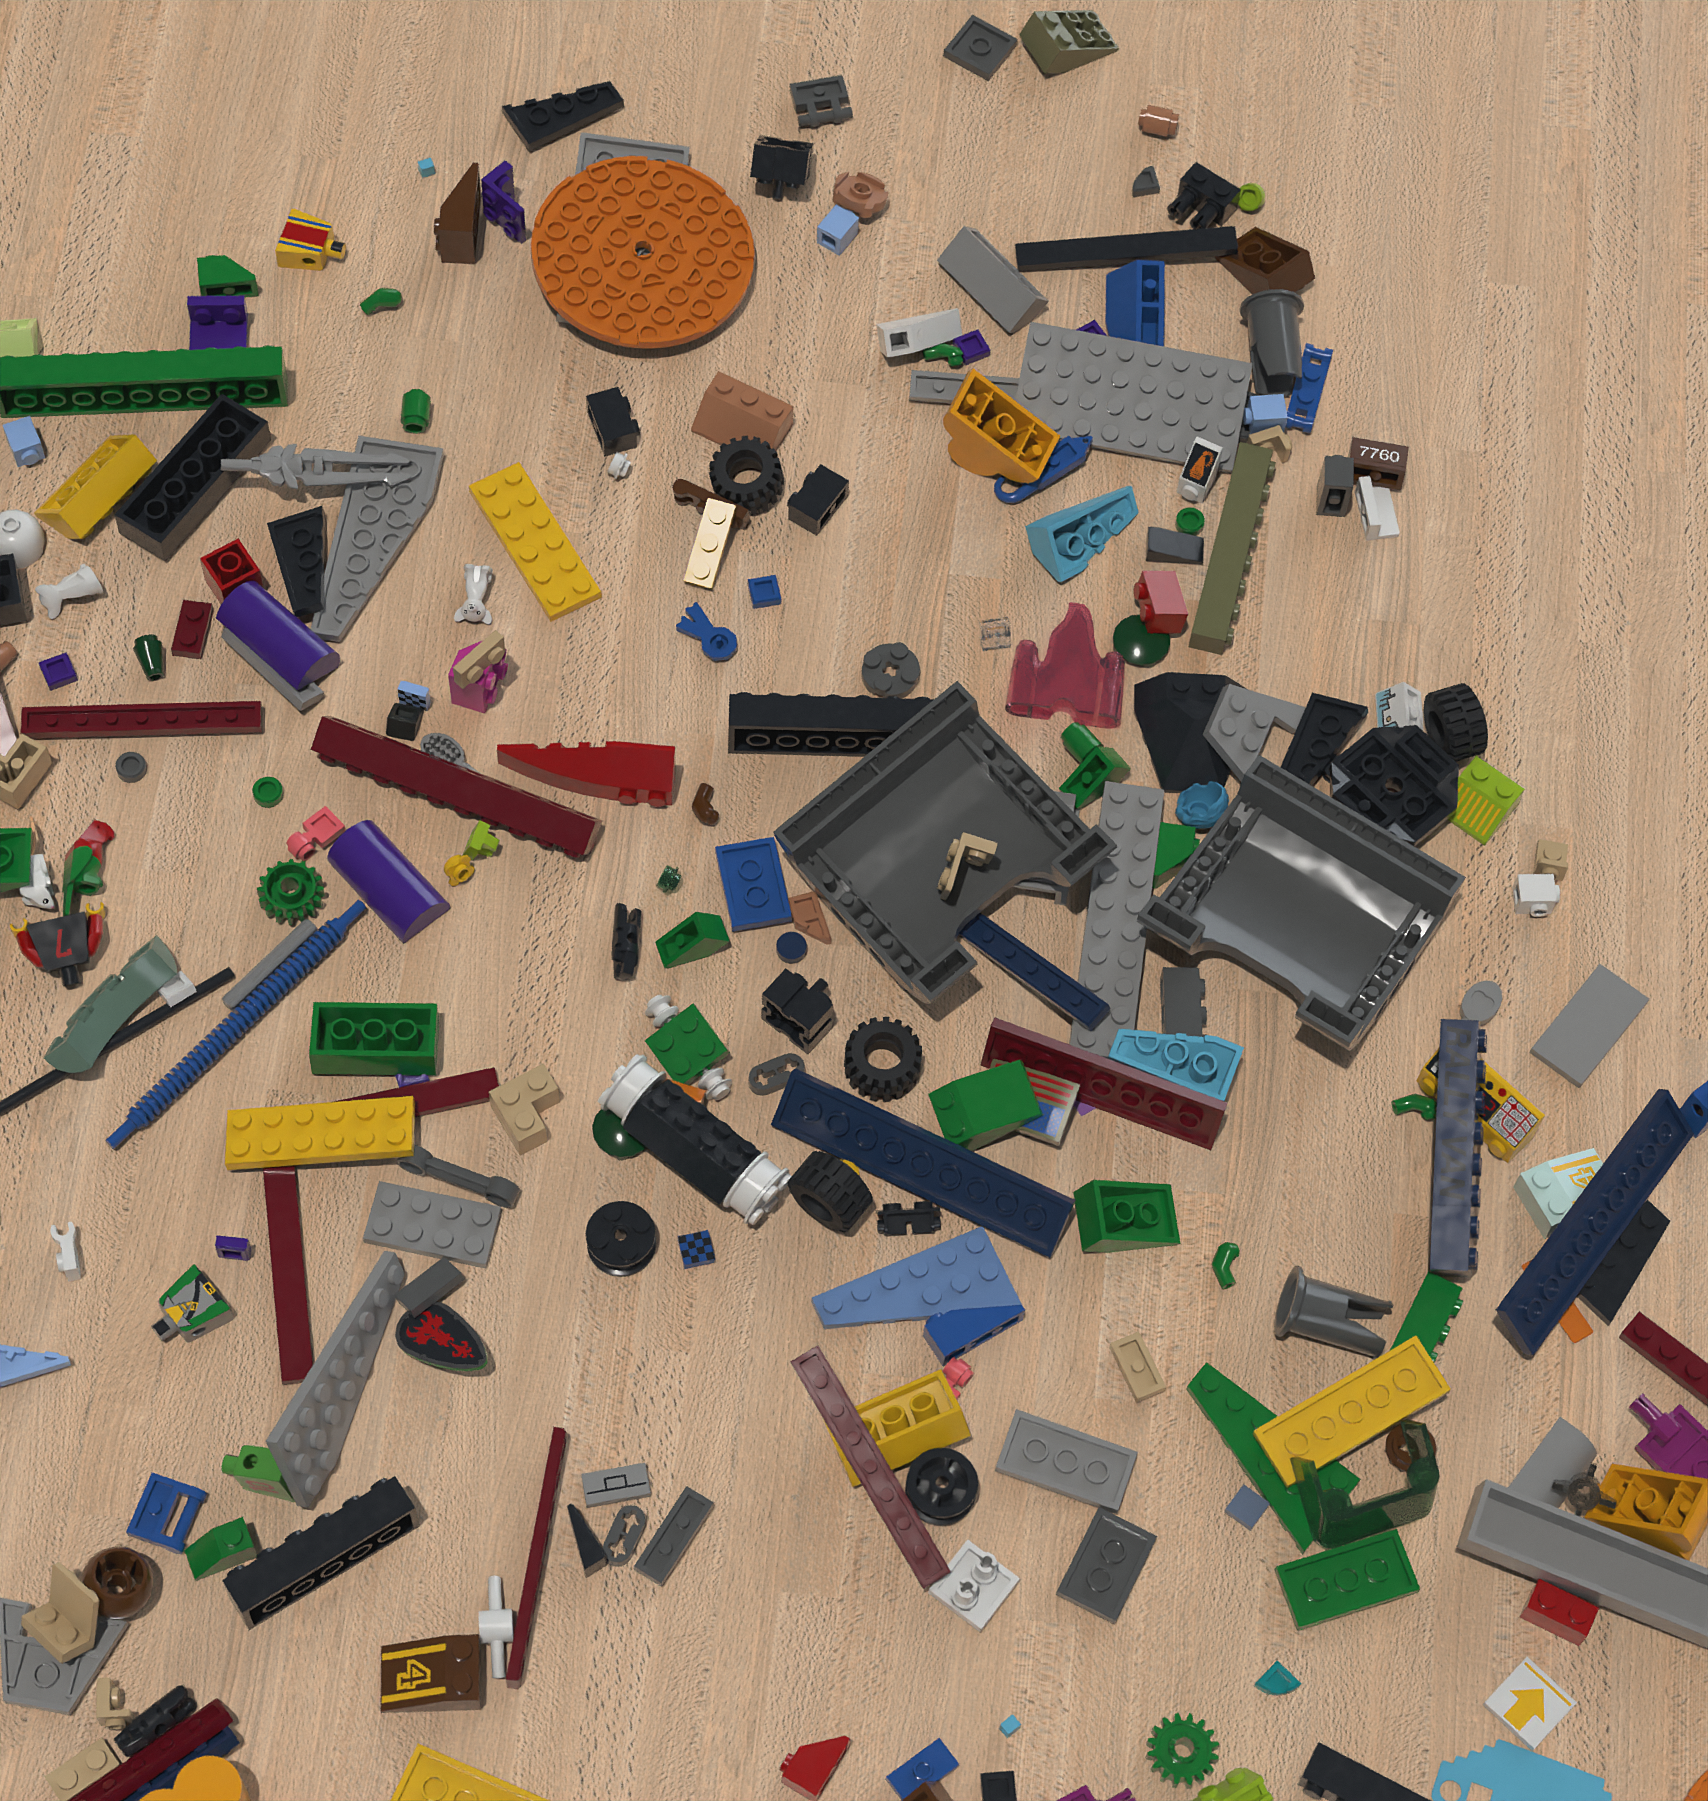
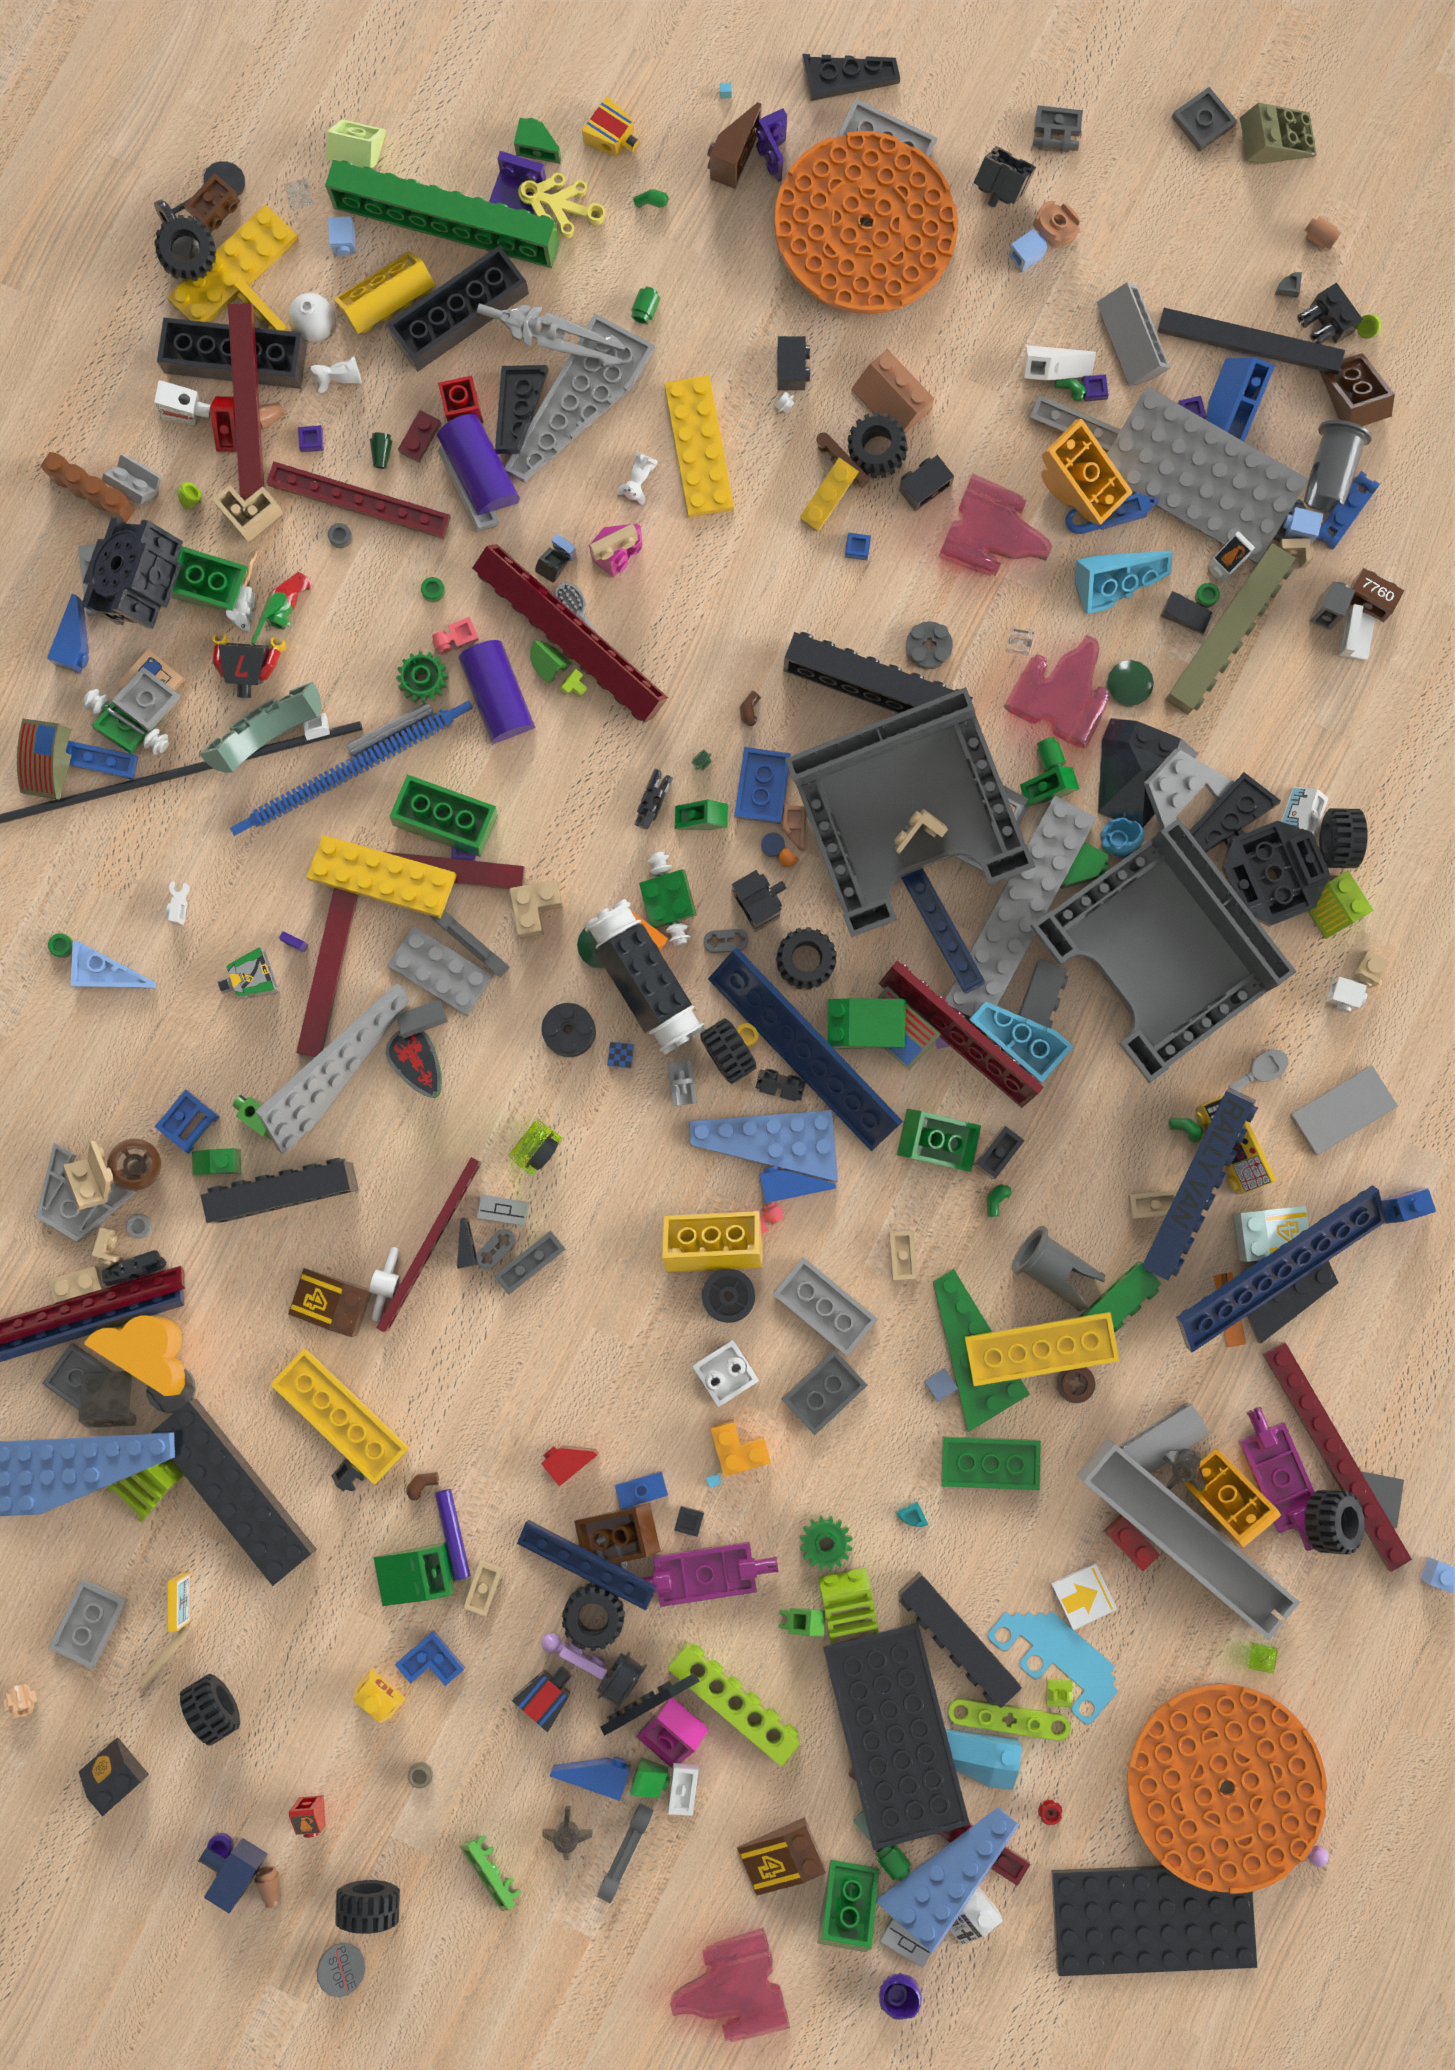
camera: 25 degrees right, 20 degrees up
(144, 1668) = (139, 1226): none -> light grey tile
(273, 334) = (559, 202): none -> light yellow plant
(438, 827) = (547, 660): none -> bright green brick
(458, 869) = (550, 700): yellow plate -> none
(613, 772) = (688, 661): red wedge -> none
(631, 1388) = (535, 1147): none -> clear neon green piece
(717, 642) = (806, 577): blue piece -> none
(786, 1253) = (682, 1083): none -> light grey hips
(815, 955) = (787, 858): none -> orange hinge
(870, 1467) = (679, 1269): dark red tile -> none
(911, 524) = (993, 527): none -> clear pink rock
(1025, 1680) = (738, 1456): none -> light orange brick
(1160, 601) = (1156, 658): brick -> none
(1204, 1204) = (998, 1152): none -> black brick
(1338, 1522) = (1001, 1424): clear green windscreen -> none
(1409, 1205) = (1151, 1203): none -> tan plate

